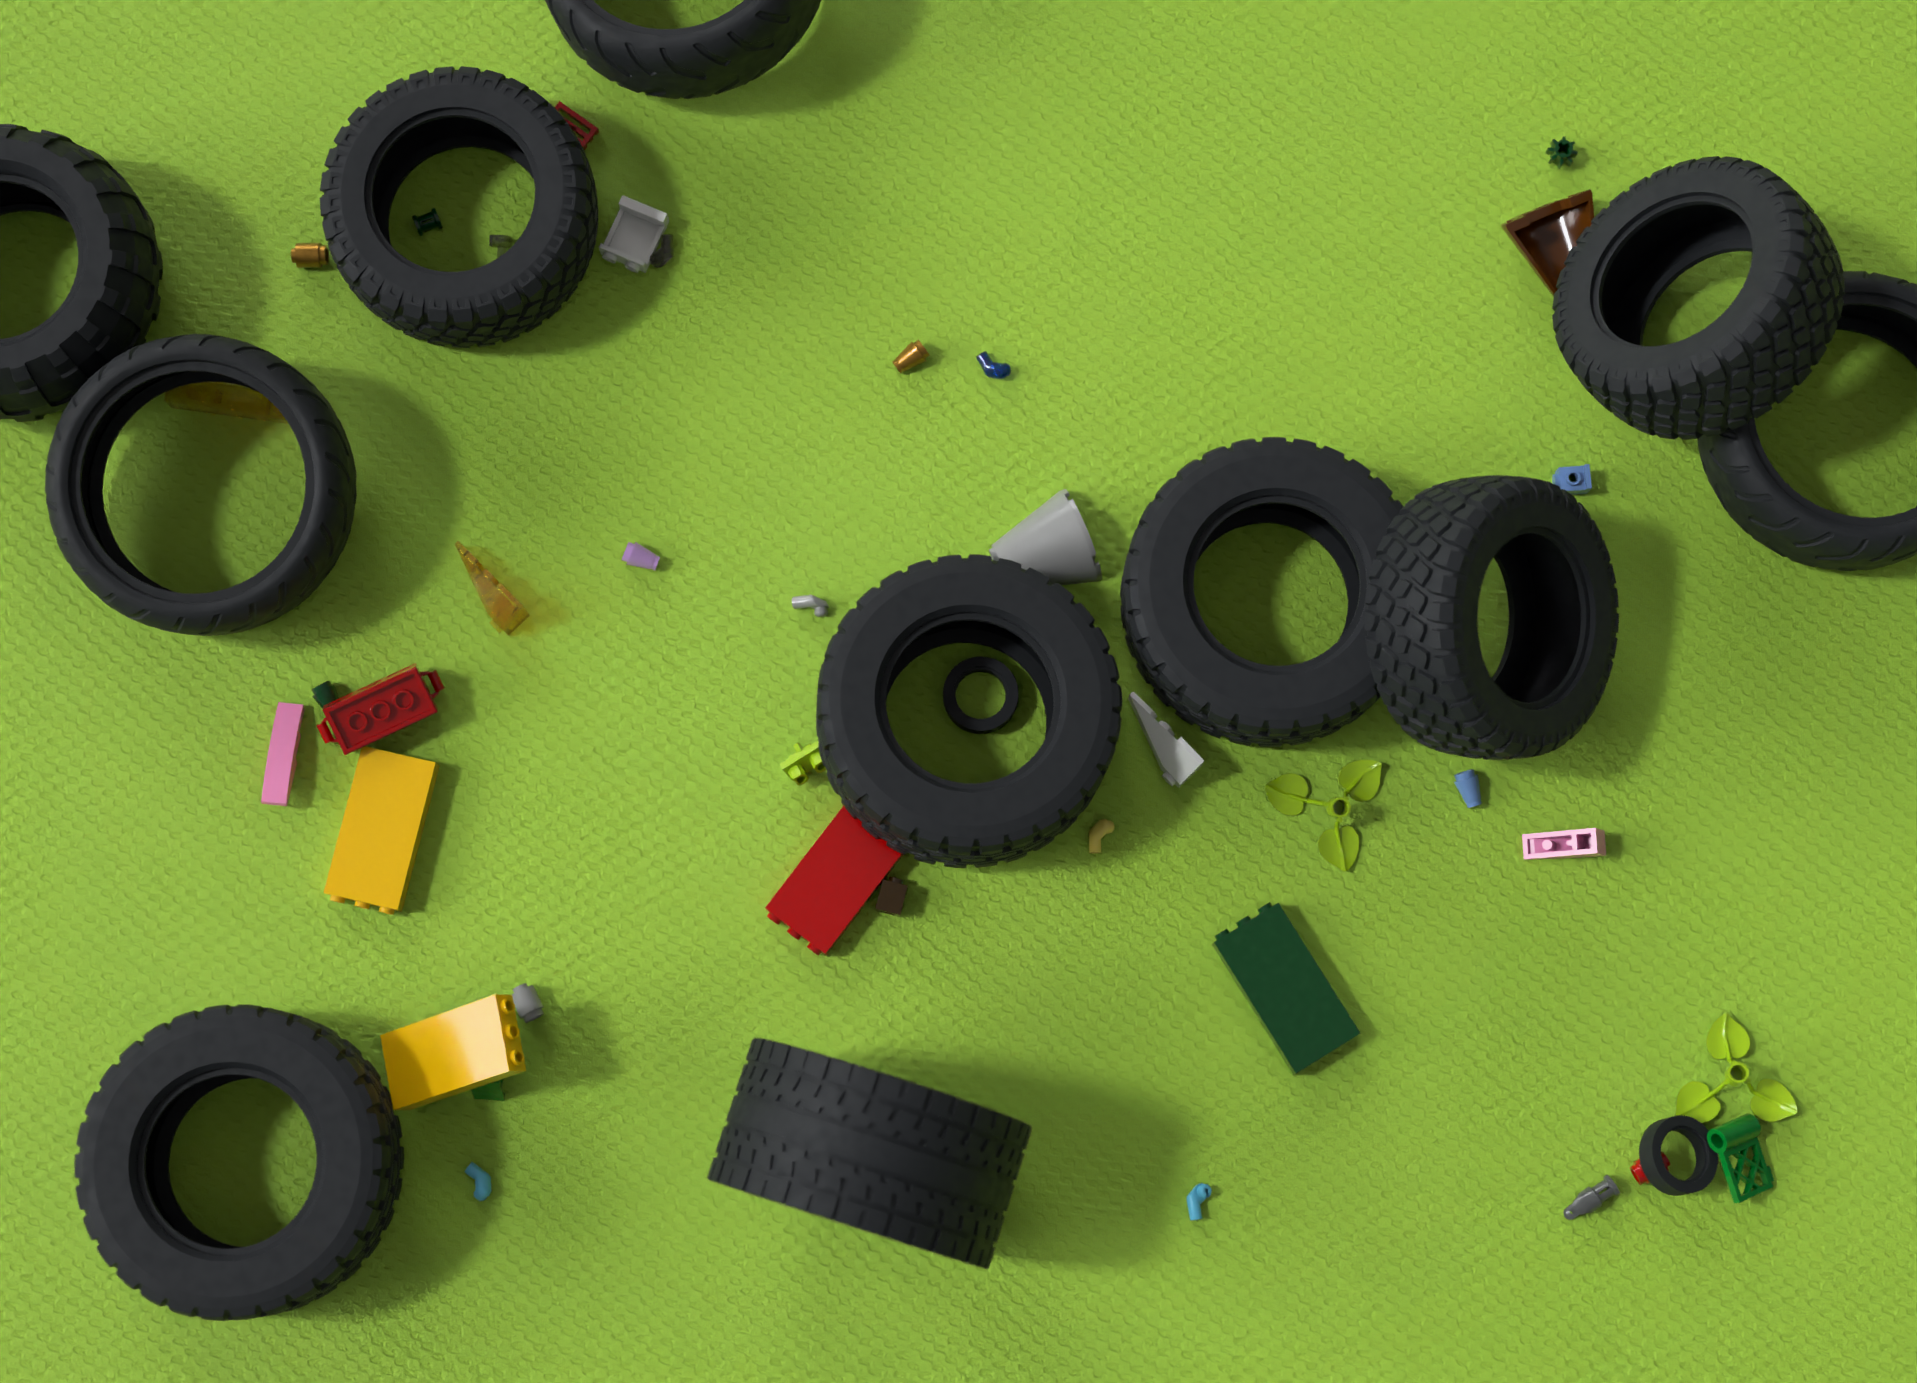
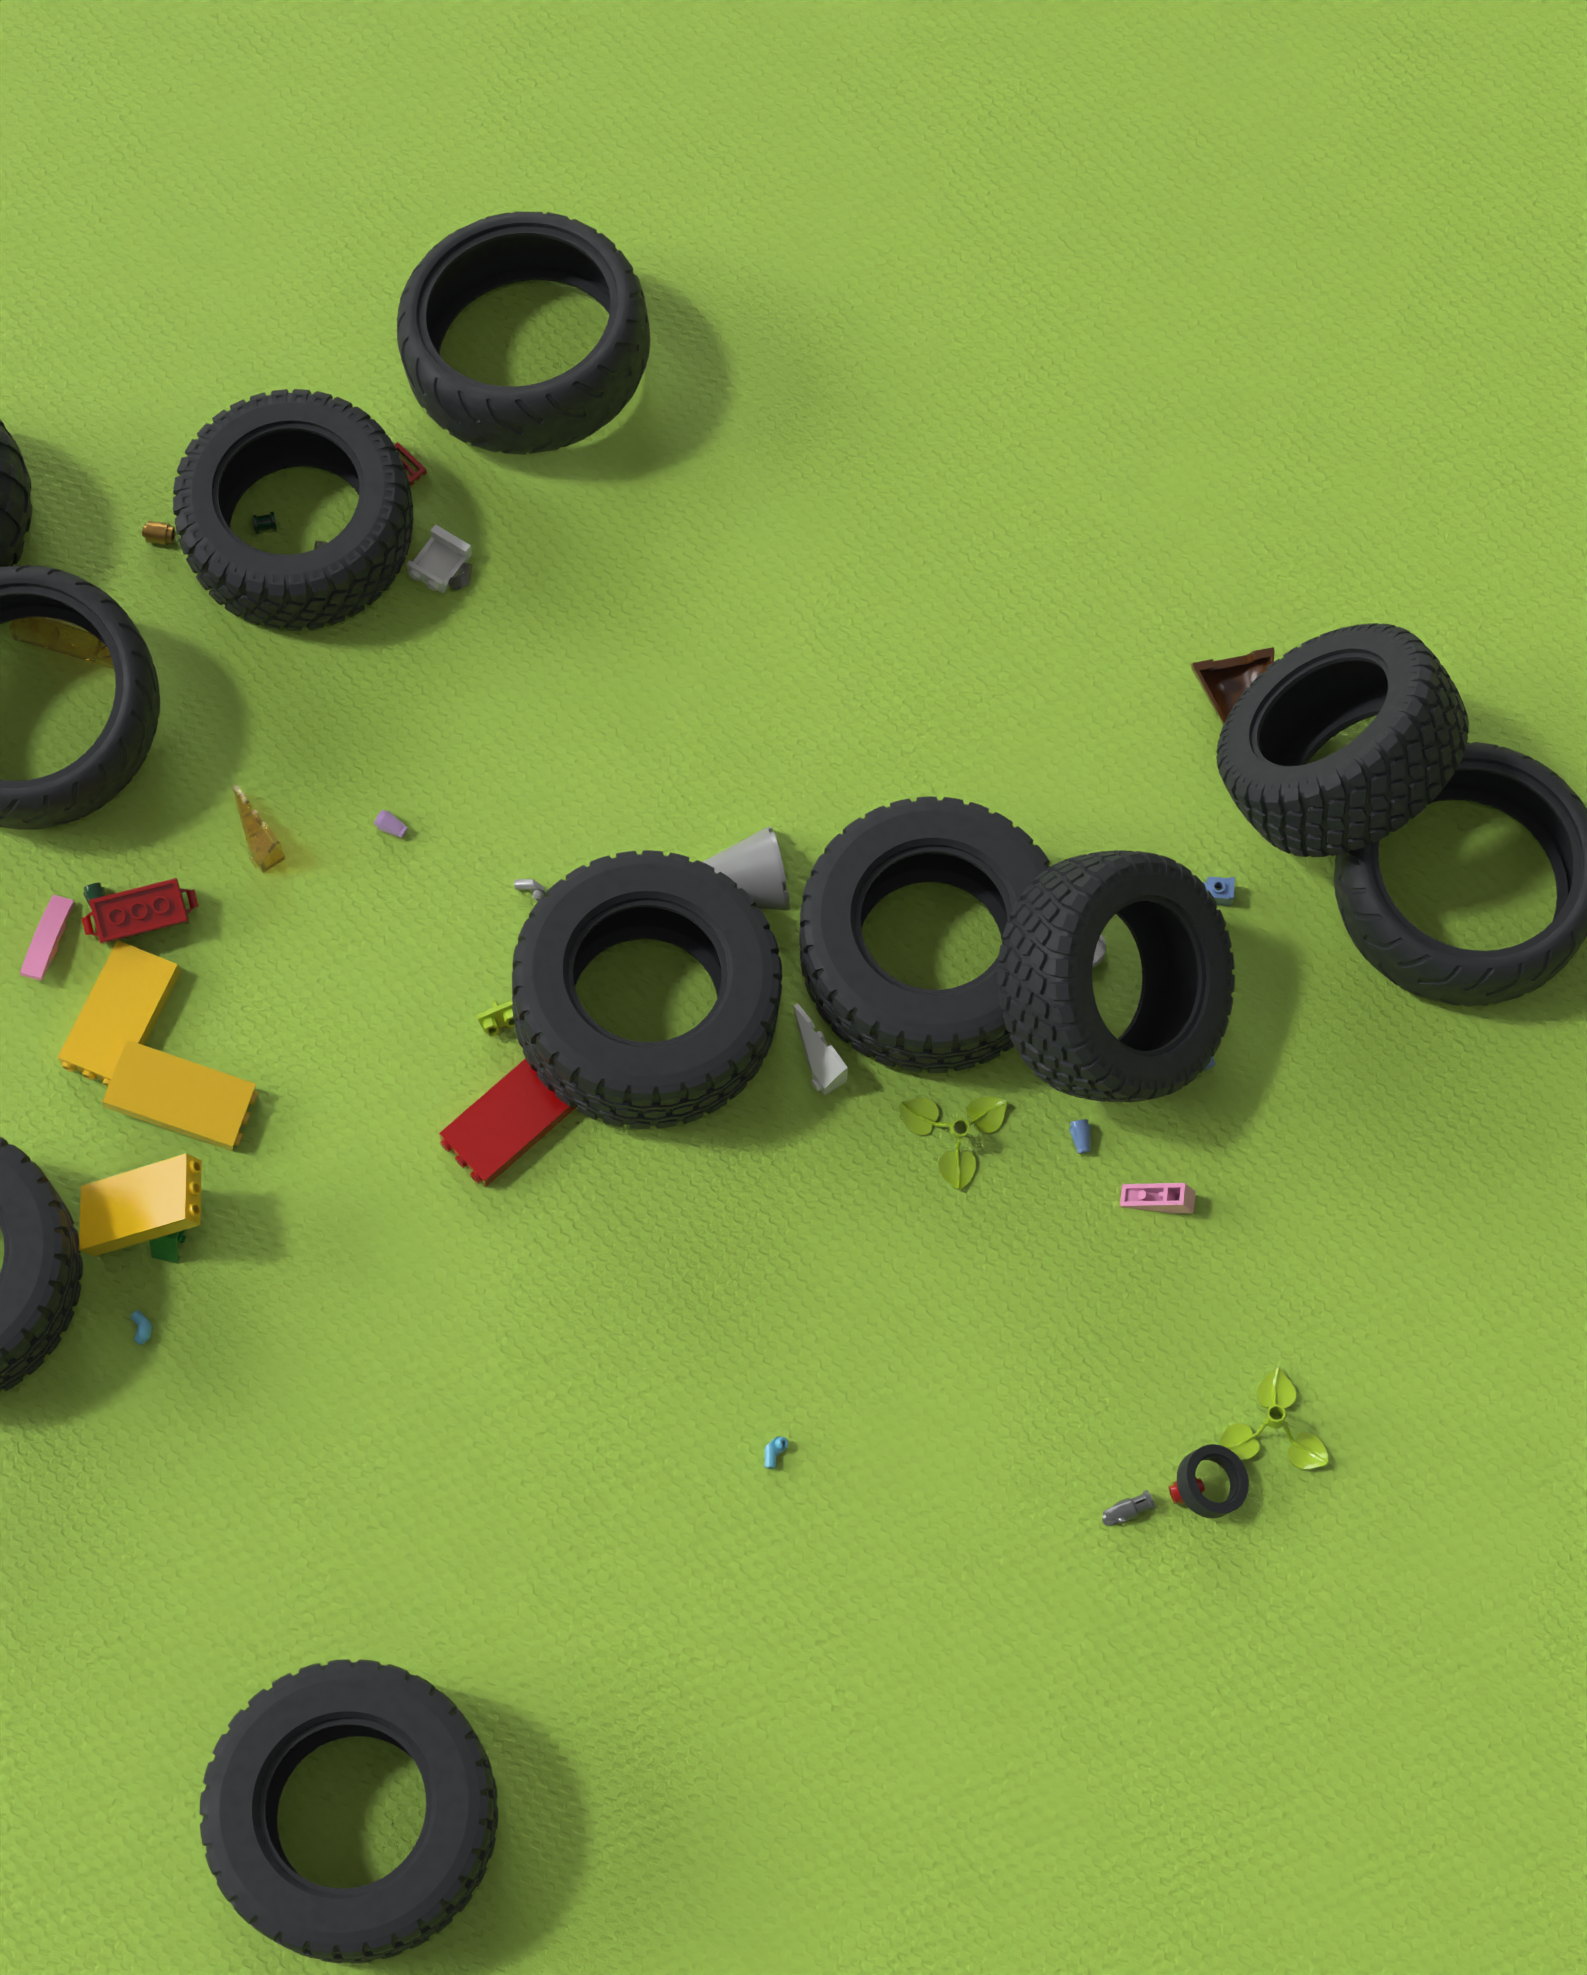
camera: 10 degrees right, 10 degrees down
(469, 913) = (180, 1095): none -> yellow brick
(527, 1002) = (215, 1181): light grey brick -> none
(870, 1151) = (485, 1332): black tyre -> none
(892, 897) = (552, 1144): dark brown brick -> none
(911, 356) = (658, 696): pearl gold cone -> none
(990, 666) = (664, 961): black tyre -> none
(993, 369) = (726, 718): clear blue arm -> none
(1097, 832) = (744, 1120): light yellow arm -> none
(1285, 987) = (886, 1279): dark green brick -> none
(1560, 159) = (1256, 617): dark green gear -> none
(1734, 1138) = (1265, 1474): green piece -> none

